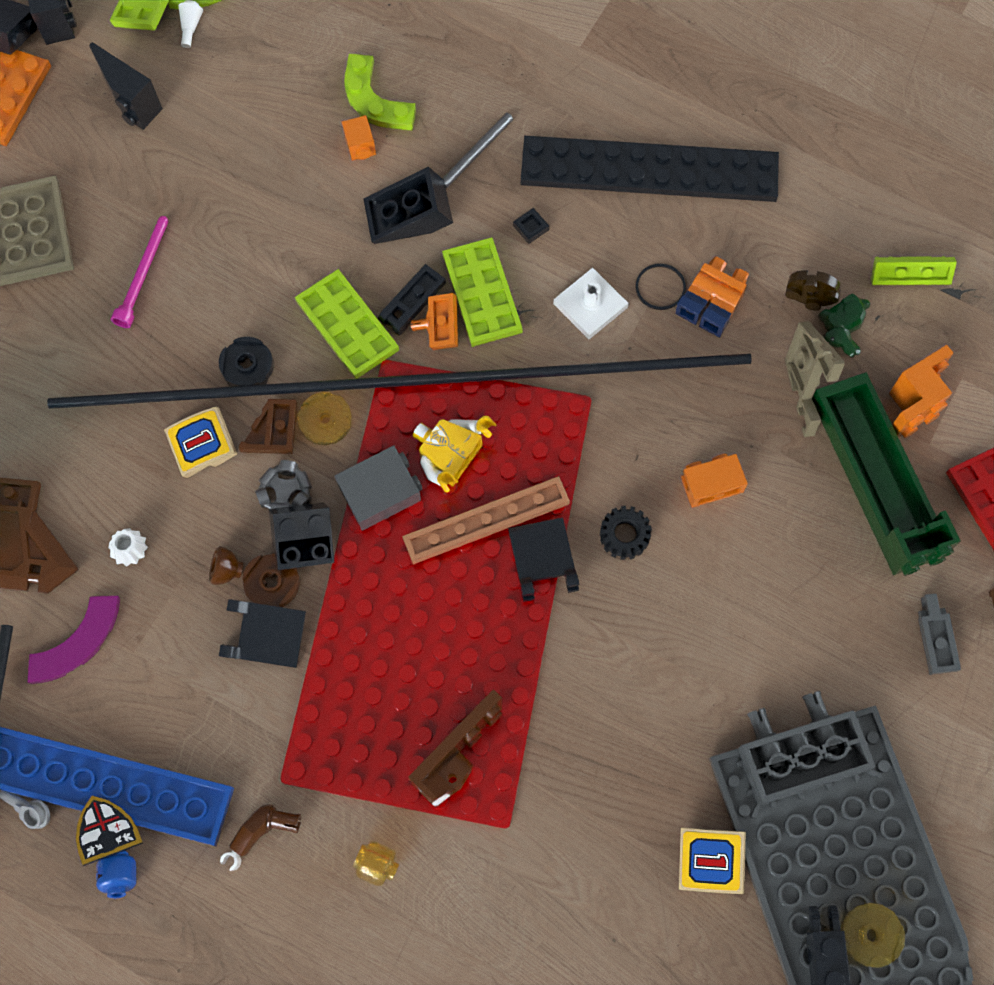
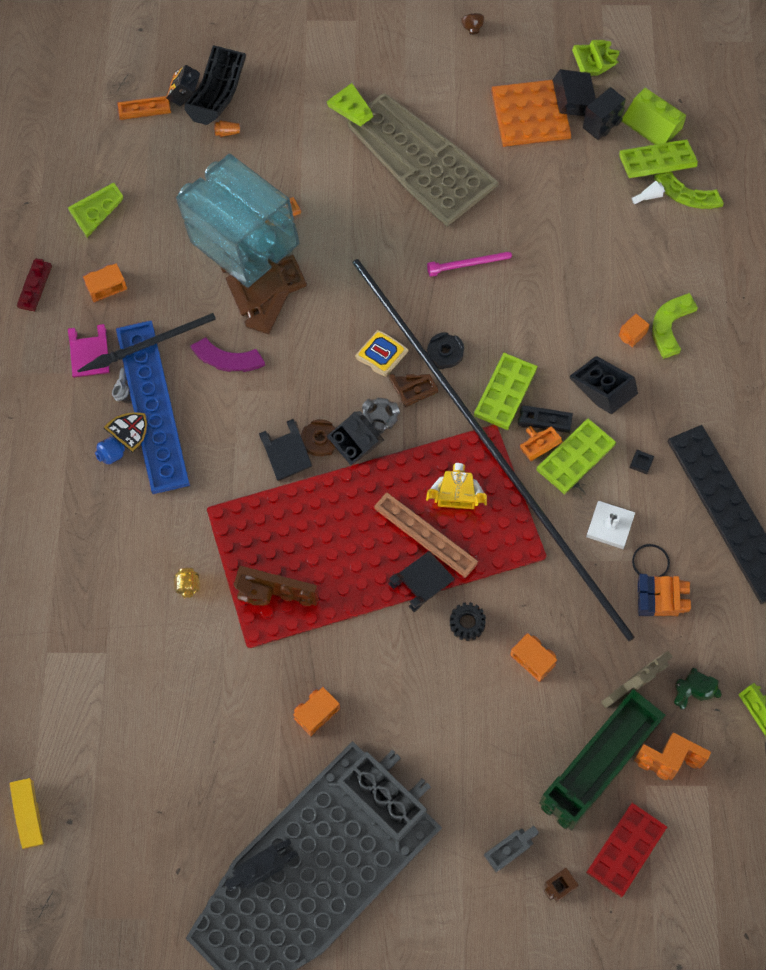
camera: 60 degrees right, 5 degrees down
(127, 547) = (296, 350): white piece -> none
(130, 88) = (574, 191): black slope -> none
(224, 566) = (313, 408): reddish brown brick -> none
(255, 827) = (175, 508): reddish brown arm -> none
(321, 406) = (441, 404): clear yellow plate -> none
(379, 487) = (409, 463): dark grey brick -> none
(477, 149) = (673, 402): flat silver bar -> none
(646, 782) = (316, 710): none -> orange brick
(712, 860) = (289, 773): slope -> none
(813, 290) = (705, 654): dark brown plate -> none
(888, 930) = (292, 876): clear yellow plate -> none

